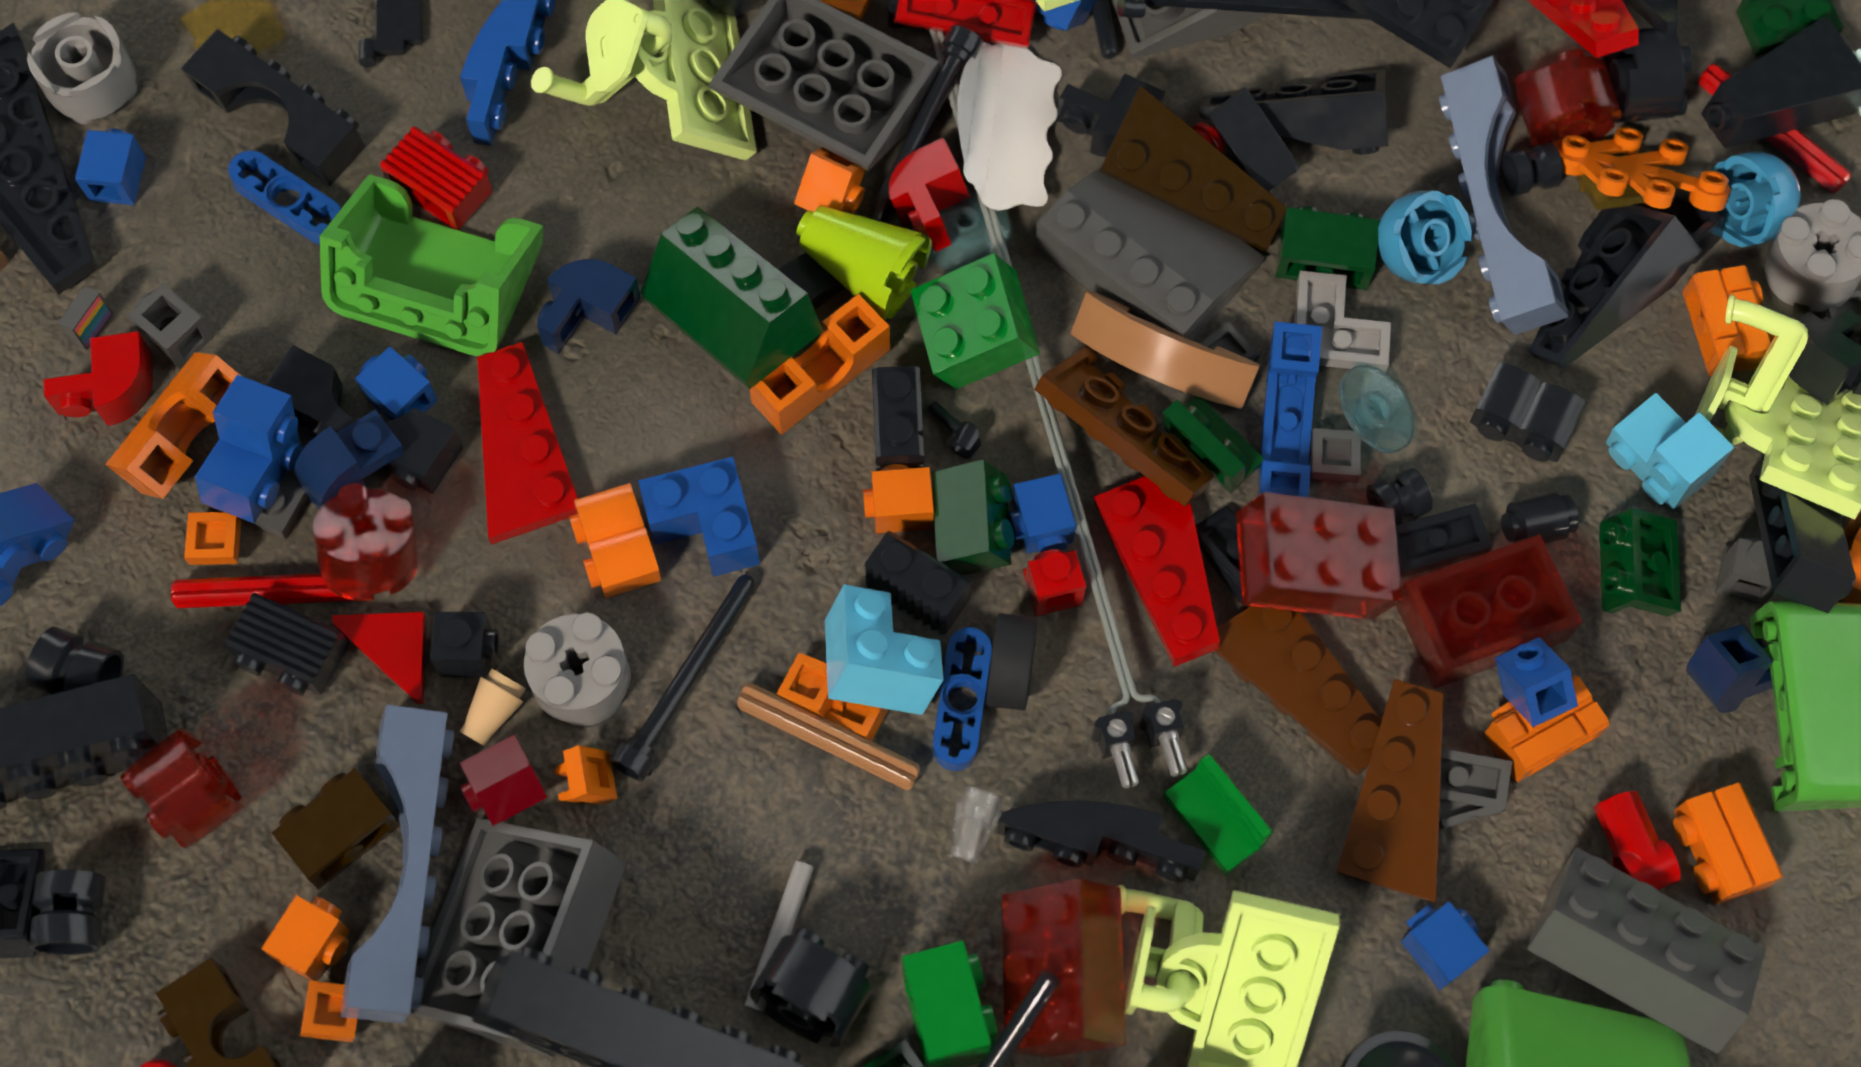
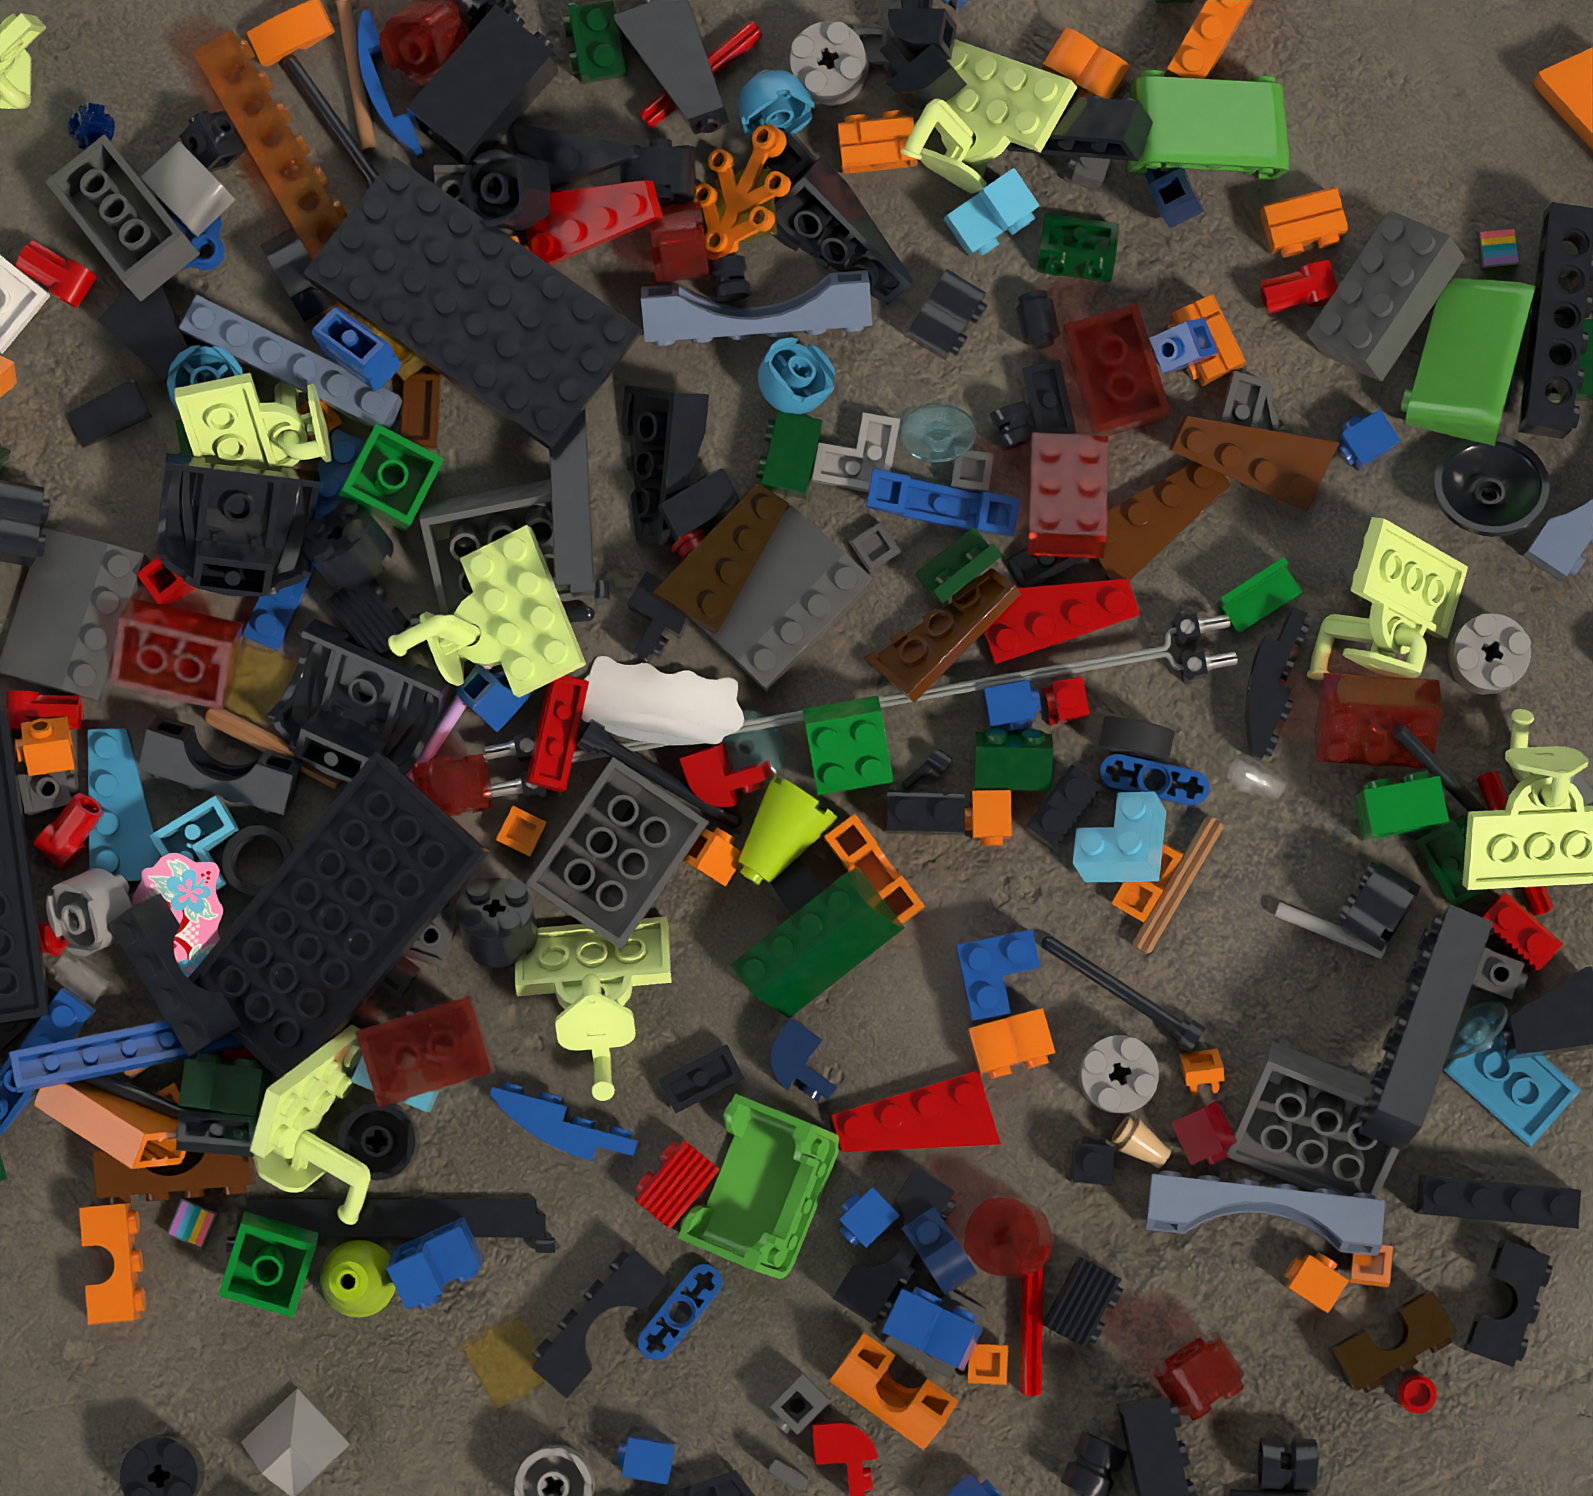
camera: 80 degrees left, 15 degrees up
(334, 828) = (1232, 1263): dark brown brick -> none
(391, 643) = (1082, 1221): red tile -> none
(563, 198) = (701, 1078): none -> black plate
(1162, 354) = (882, 600): medium nougat slope -> none

